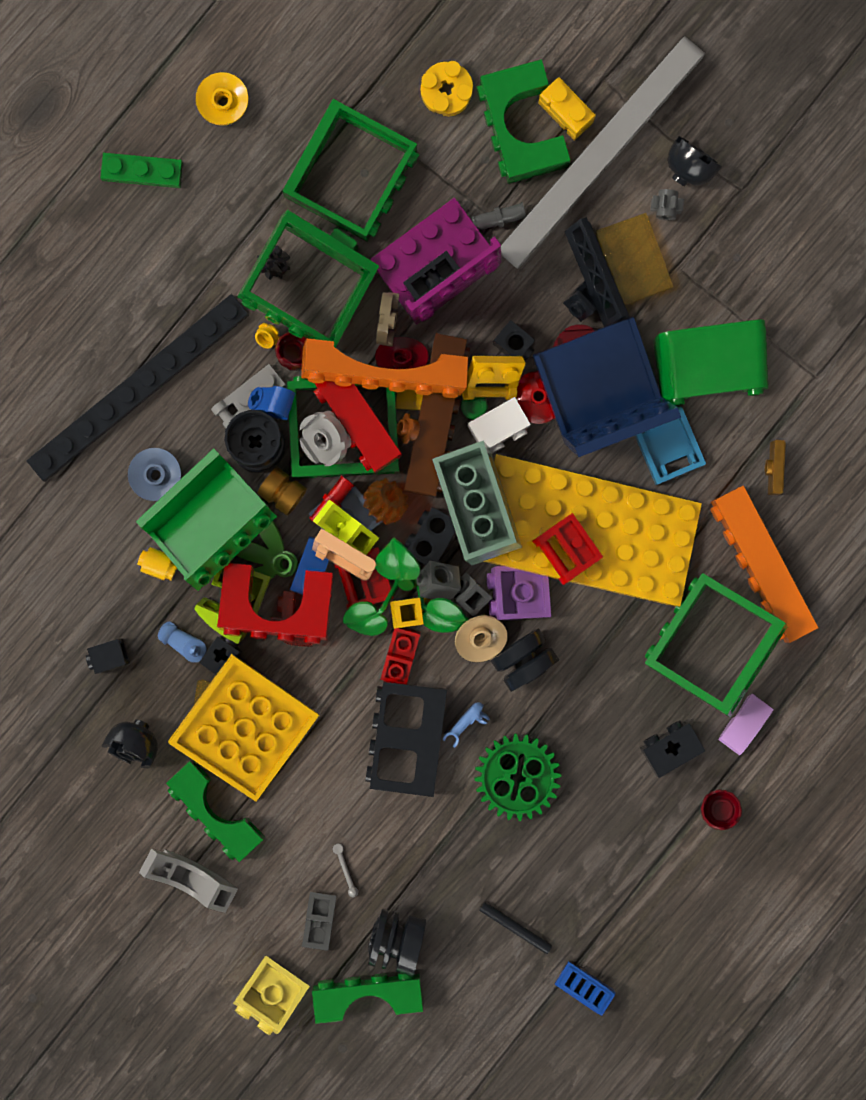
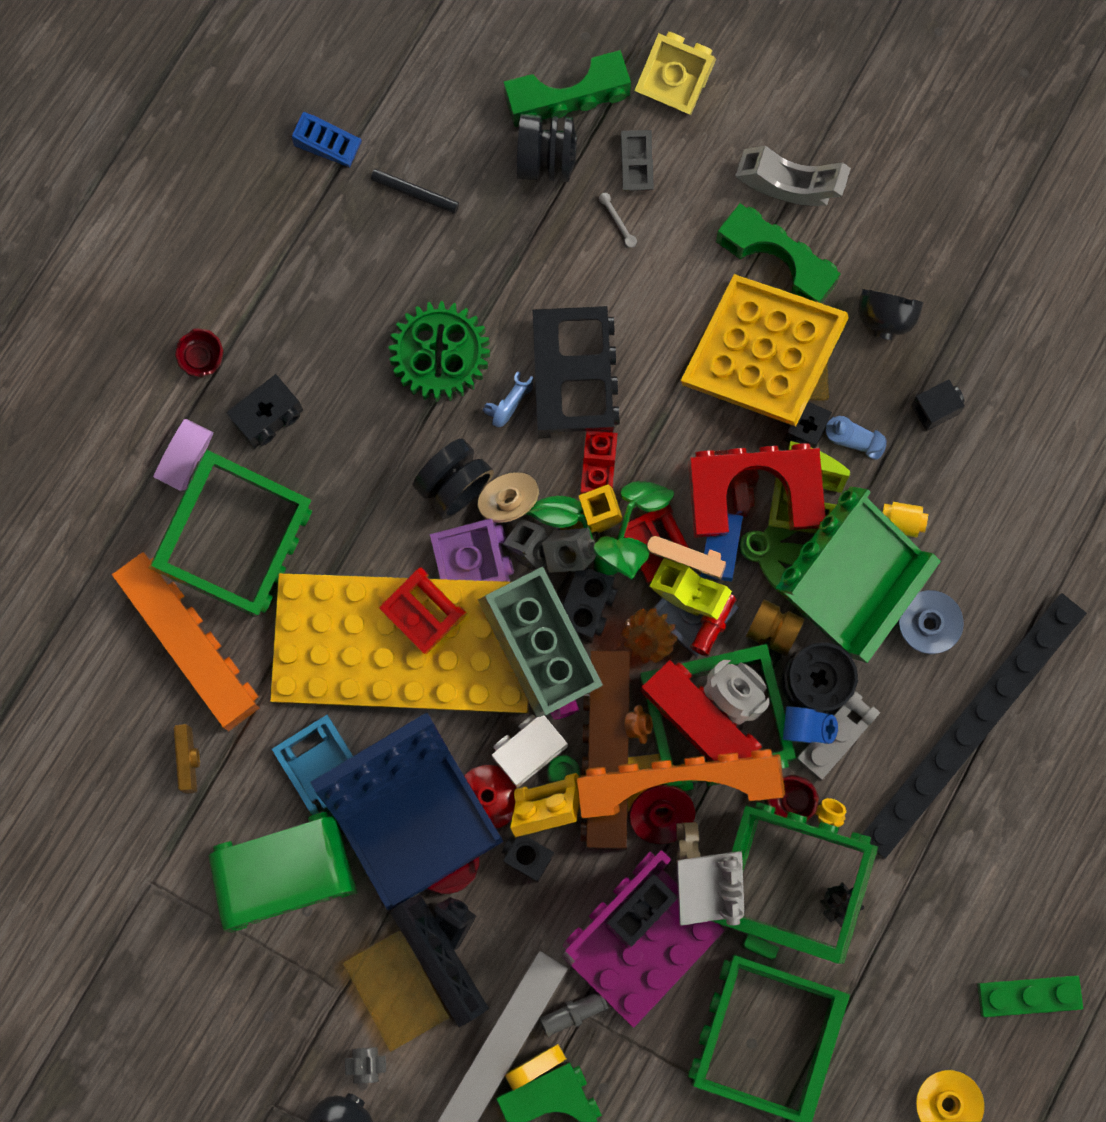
camera: 170 degrees right, 10 degrees down
(375, 284) = (711, 888): none -> light grey hinge
(535, 180) = (535, 1067): none -> yellow beam

